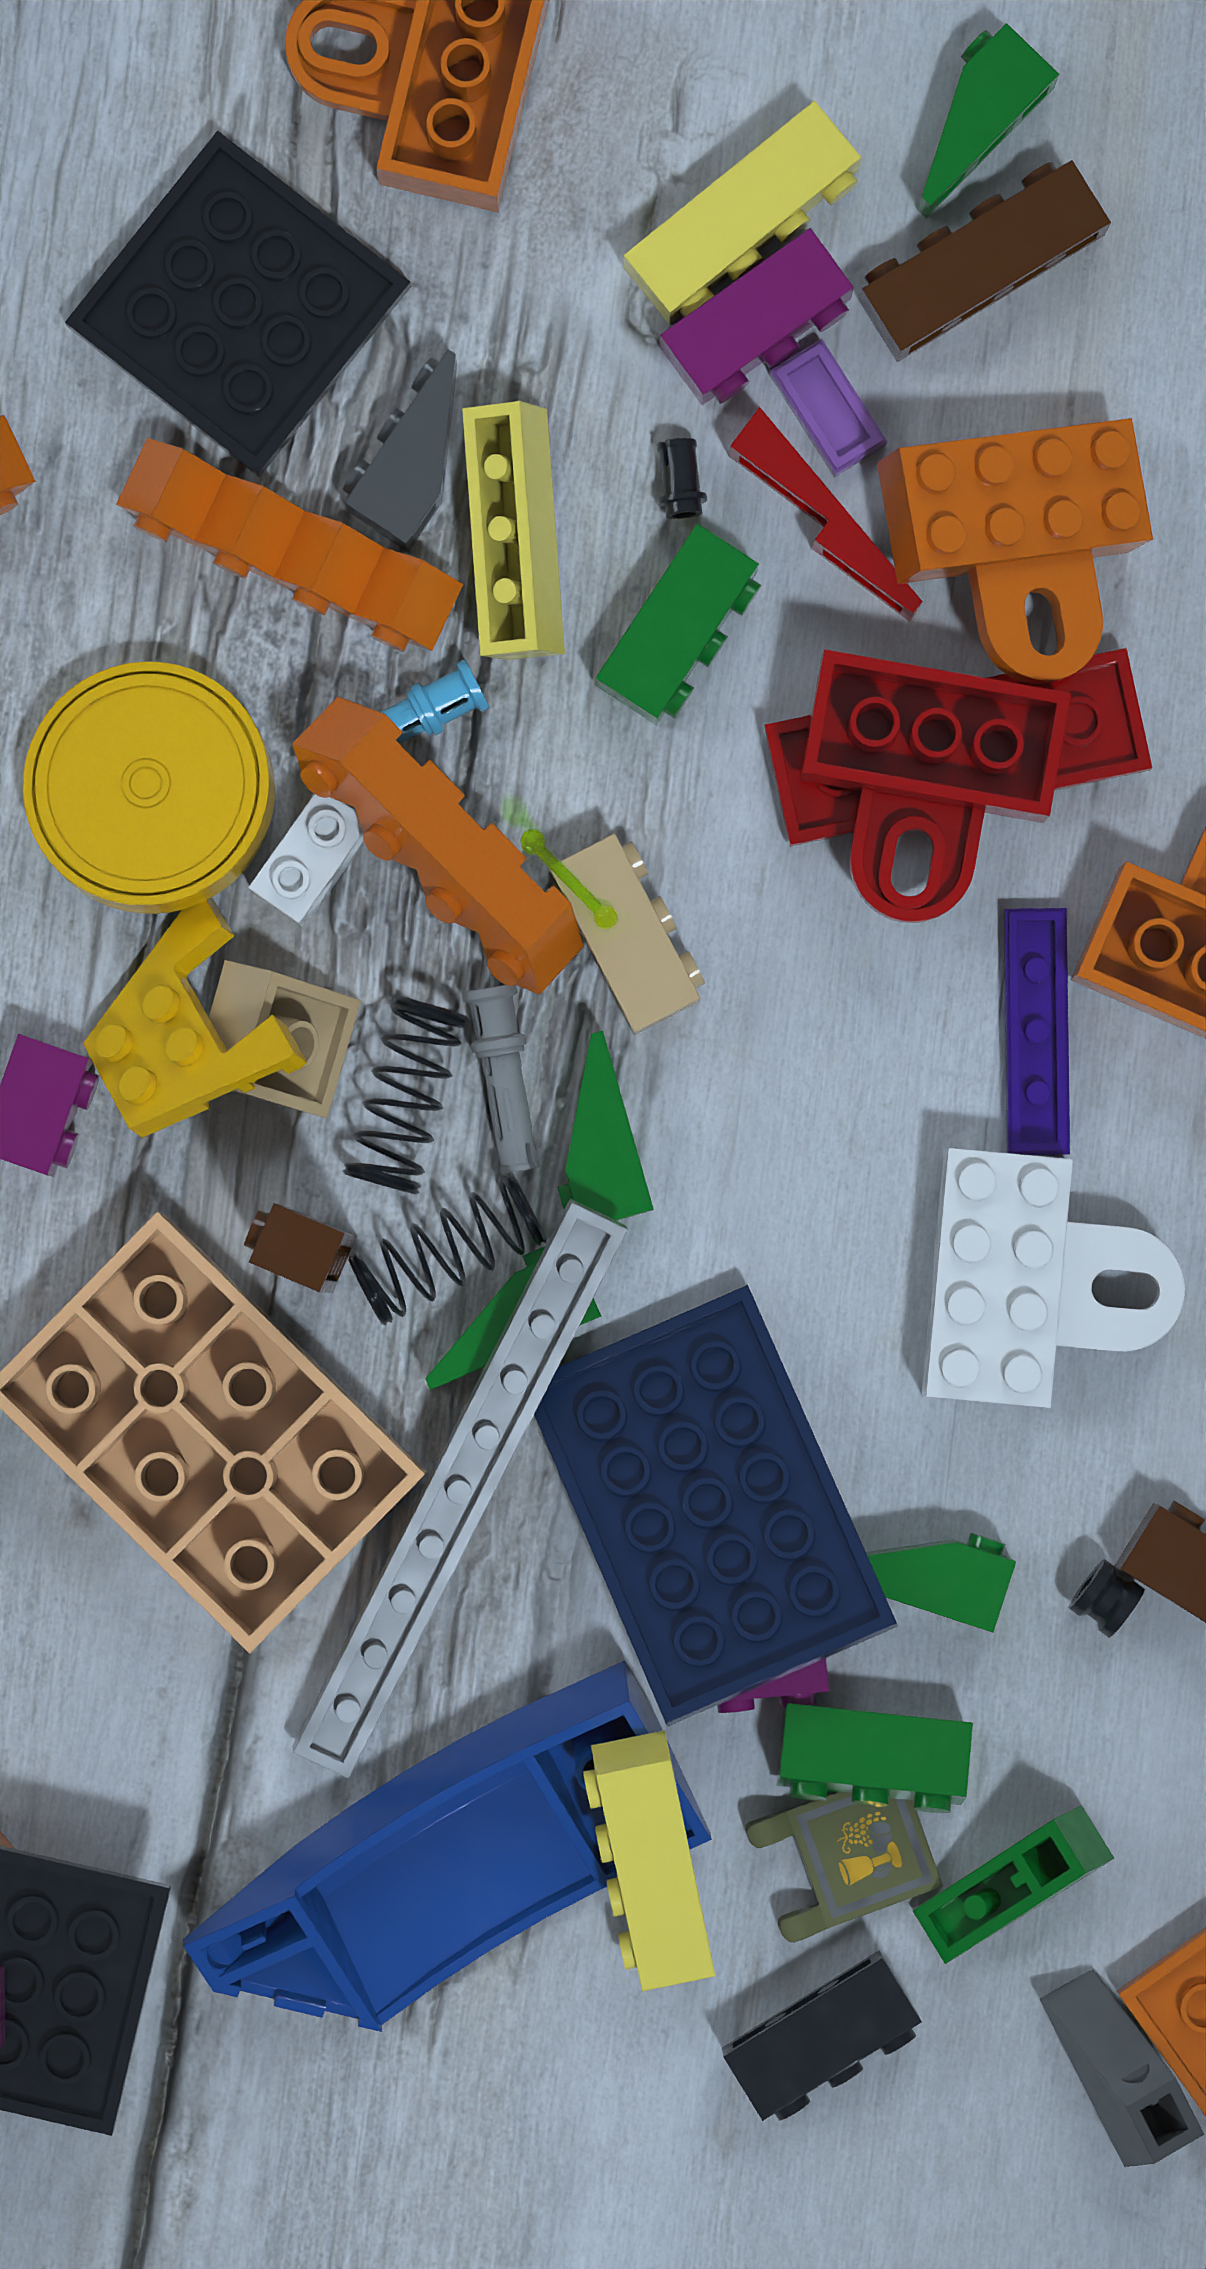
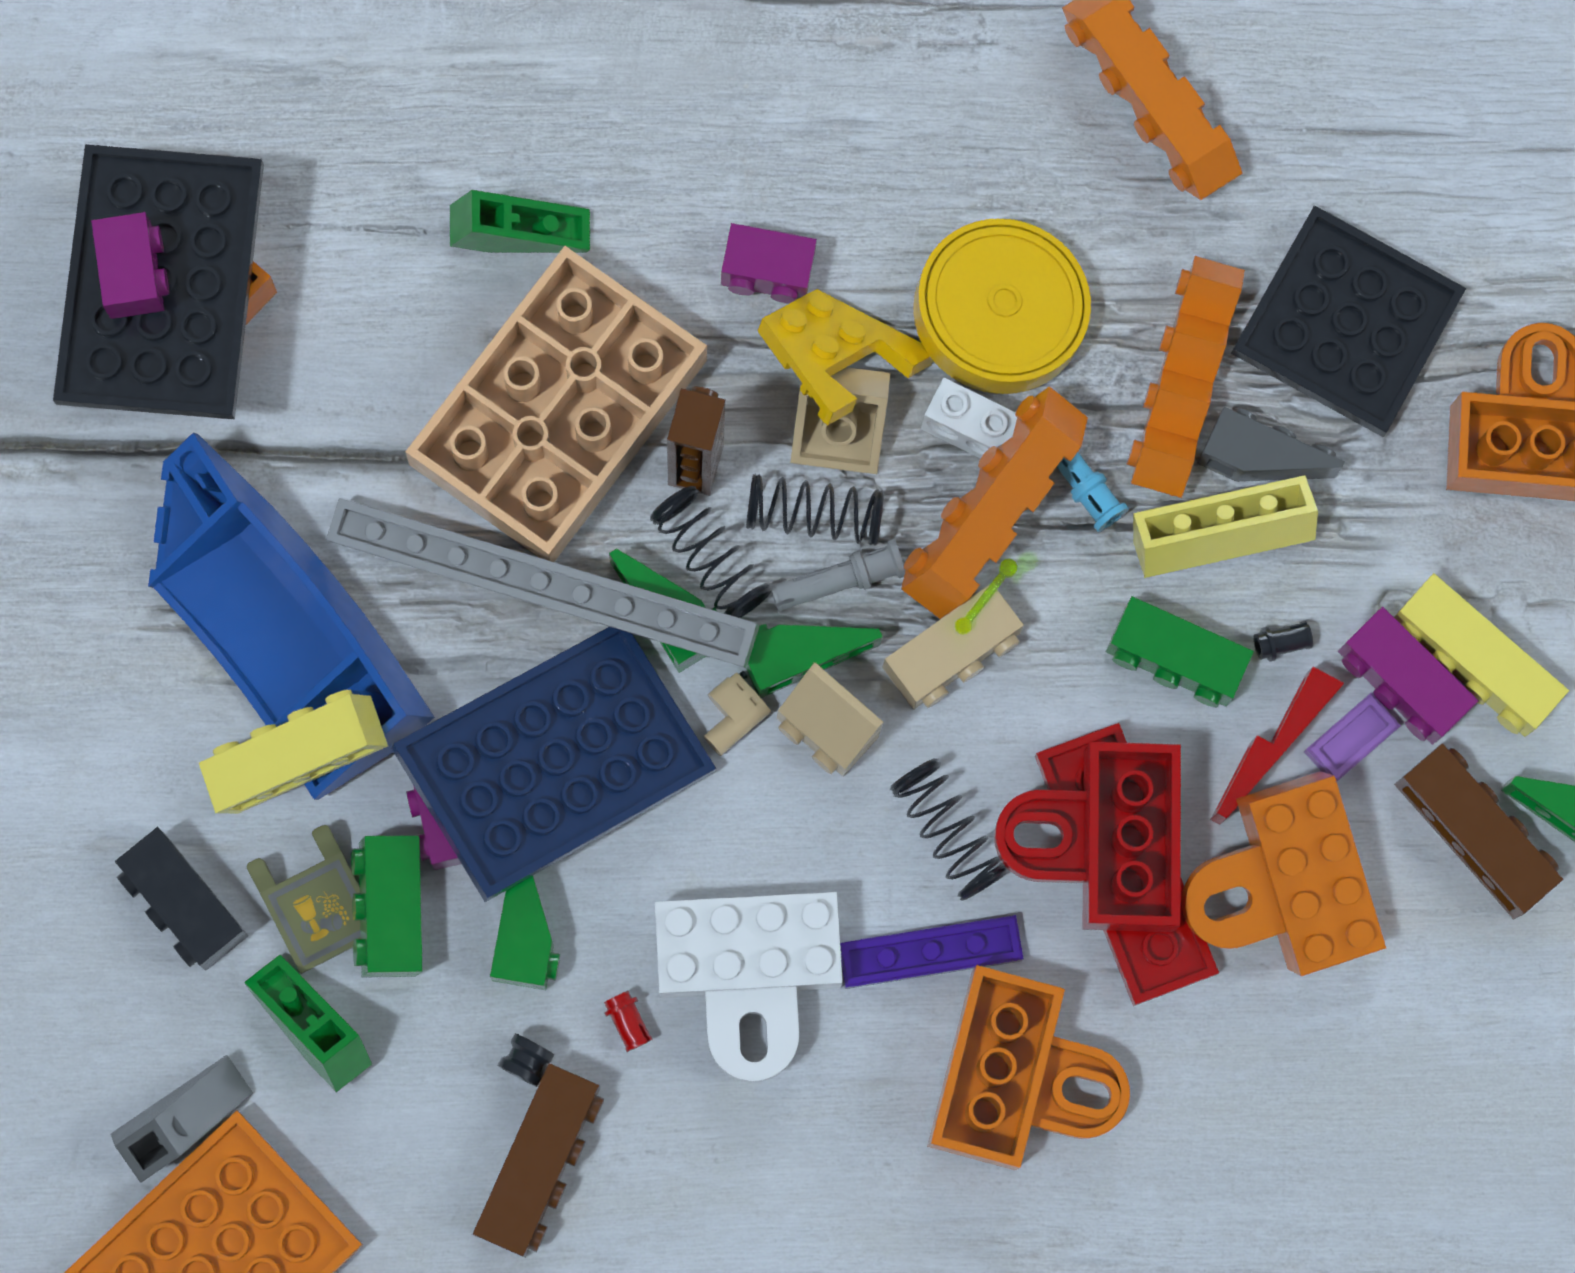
camera: 75 degrees right, 10 degrees down
(670, 1237) = (741, 709): none -> tan piece
(710, 1122) = (828, 721): none -> tan slope
(808, 1027) = (984, 878): none -> black piece
(1072, 1454) = (627, 1020): none -> red pin

